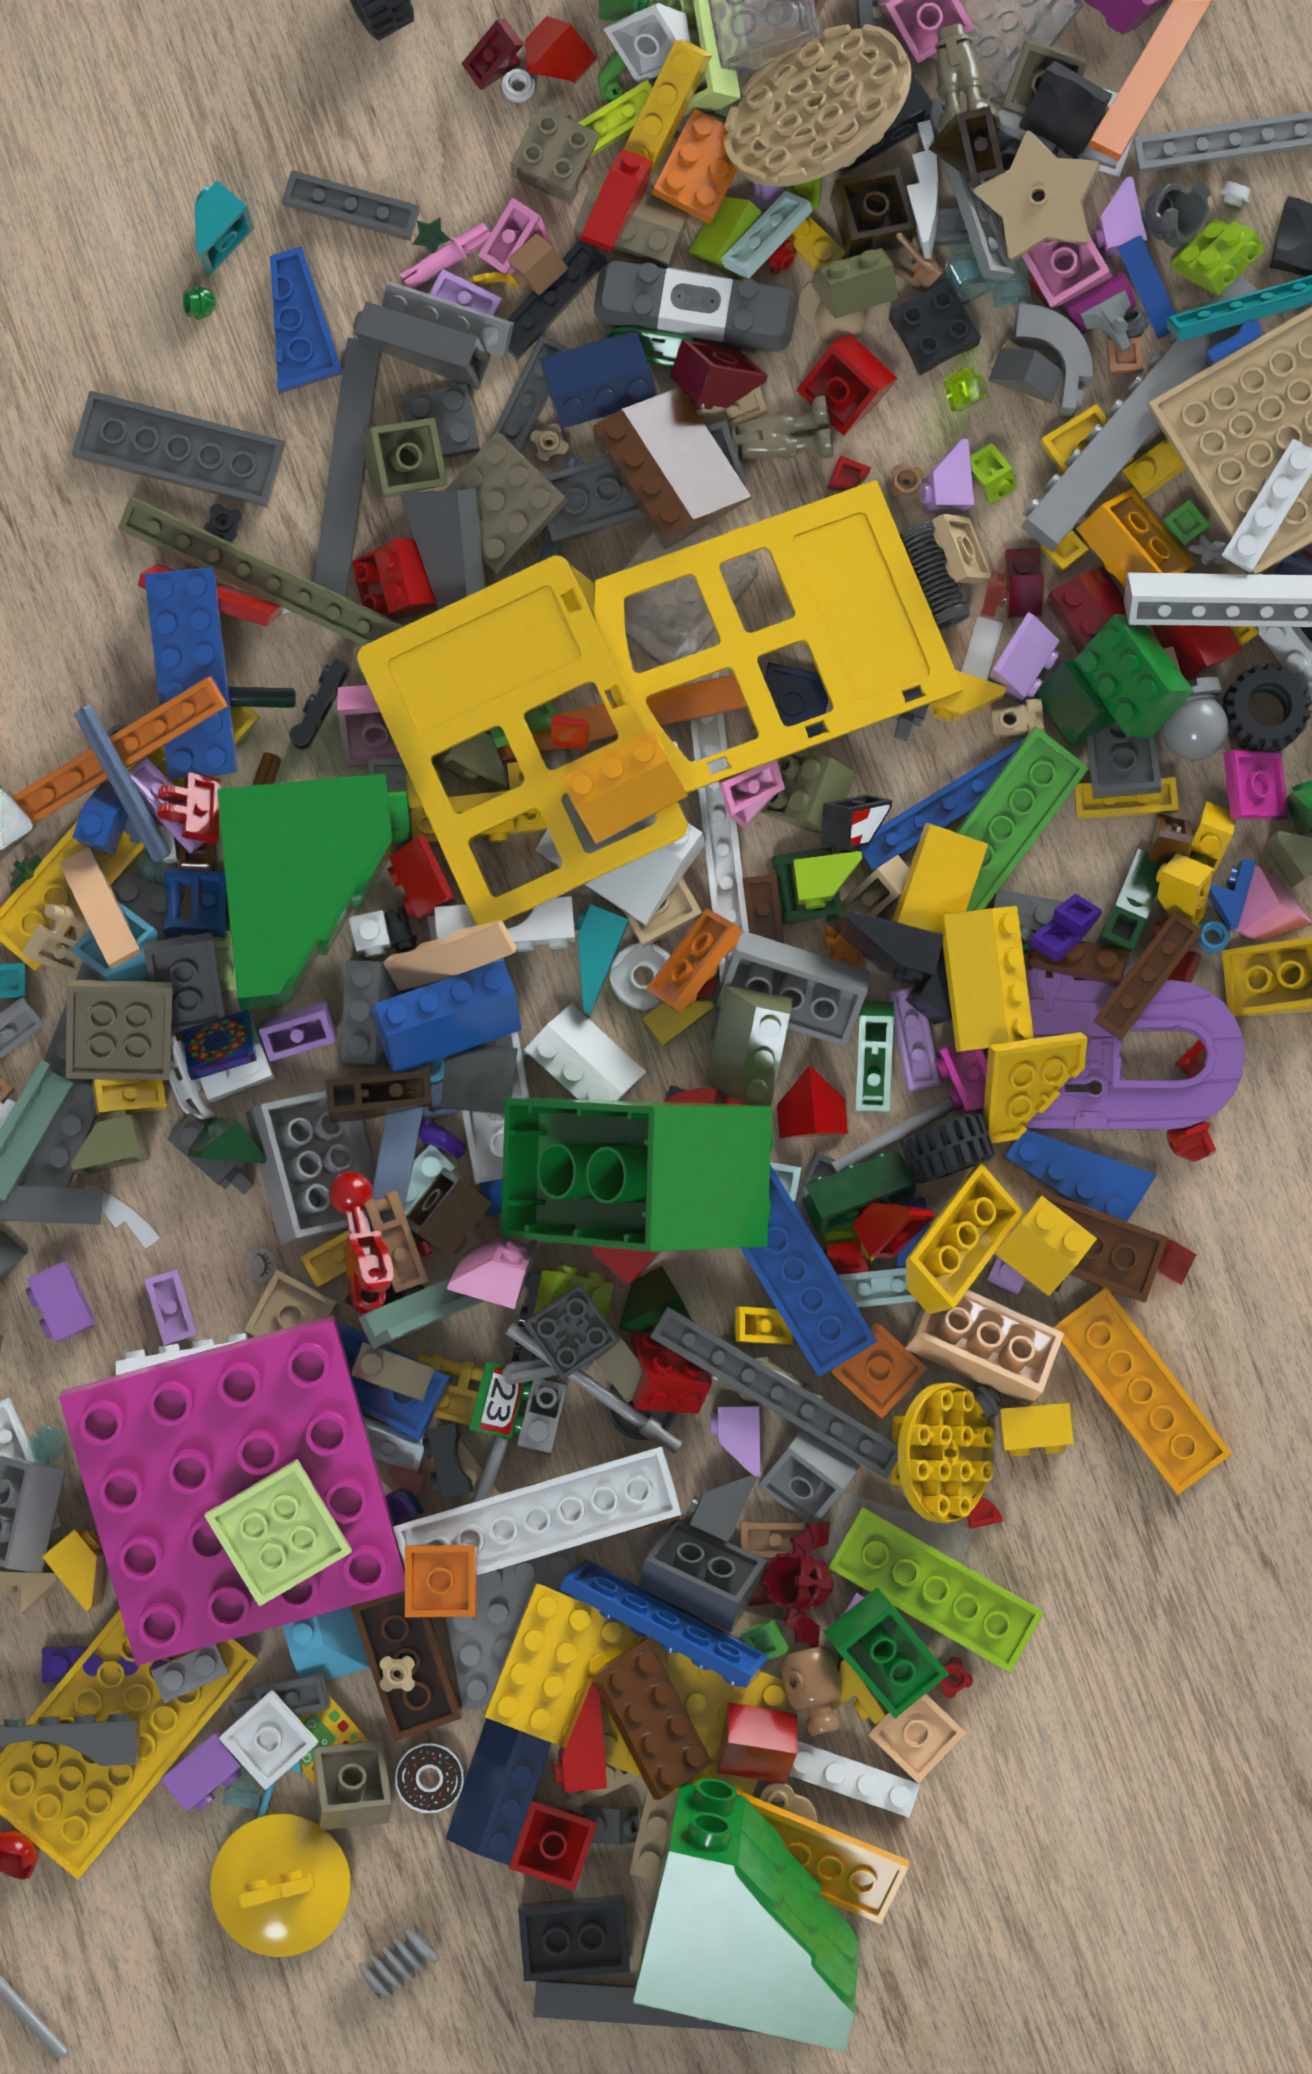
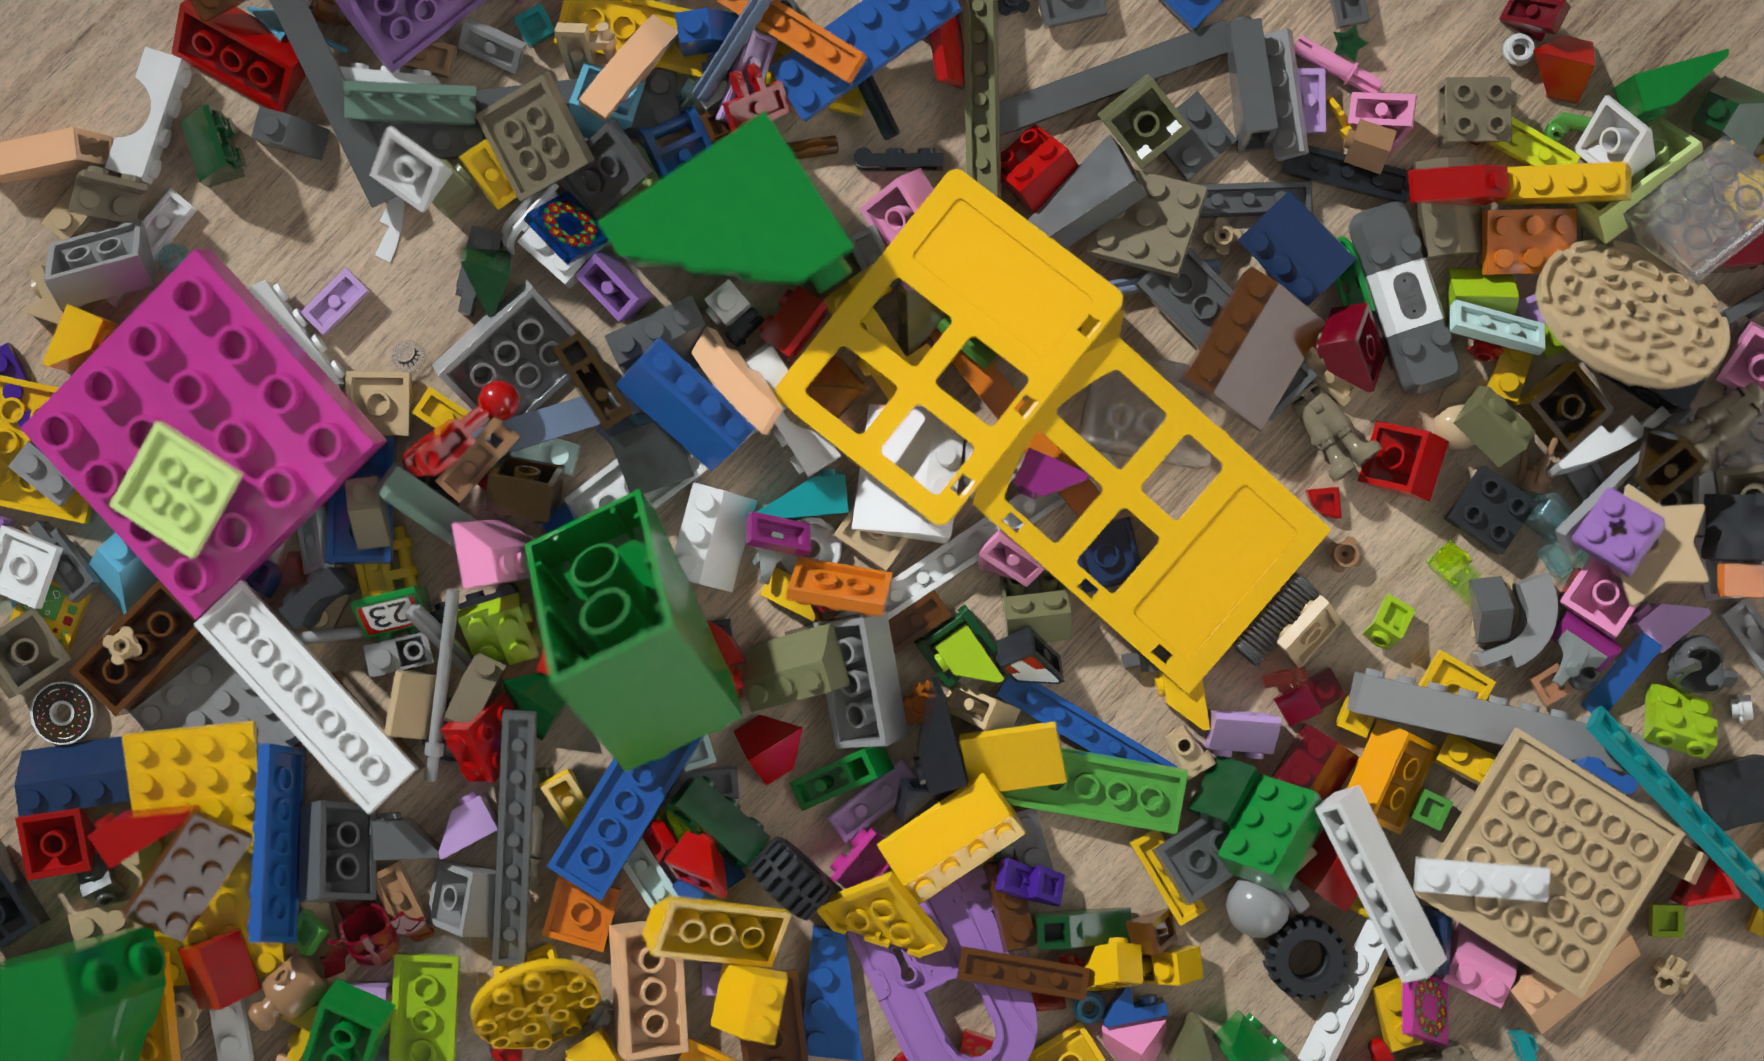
camera: 60 degrees right, 5 degrees up
(60, 1302) = (292, 209): medium lavender brick -> none
(89, 1159) = (409, 170): none -> white slope
(439, 1137) = (587, 448): dark purple arm -> none
(440, 1580) = (212, 642): orange plate -> none
(505, 868) = (836, 387): none -> clear orange slope
(570, 732) = (974, 383): red slope -> none
(571, 1331) = (474, 643): dark grey tile -> none
(598, 1425) = (411, 704): none -> tan slope
(618, 1001) = (774, 539): none -> magenta piece
(624, 786) = (950, 453): light orange slope -> none
(690, 714) = (1046, 475): none -> magenta slope
(893, 1135) = (782, 824): light grey bar -> none
(949, 484) = (1362, 591): lavender slope -> none
(982, 647) = (1234, 690): white sticker -> none
(1032, 224) = (1622, 551): none -> medium lavender brick
(1209, 551) = (1417, 841): white plant -> none
(1255, 785) = (1235, 981): dark pink tile -> none

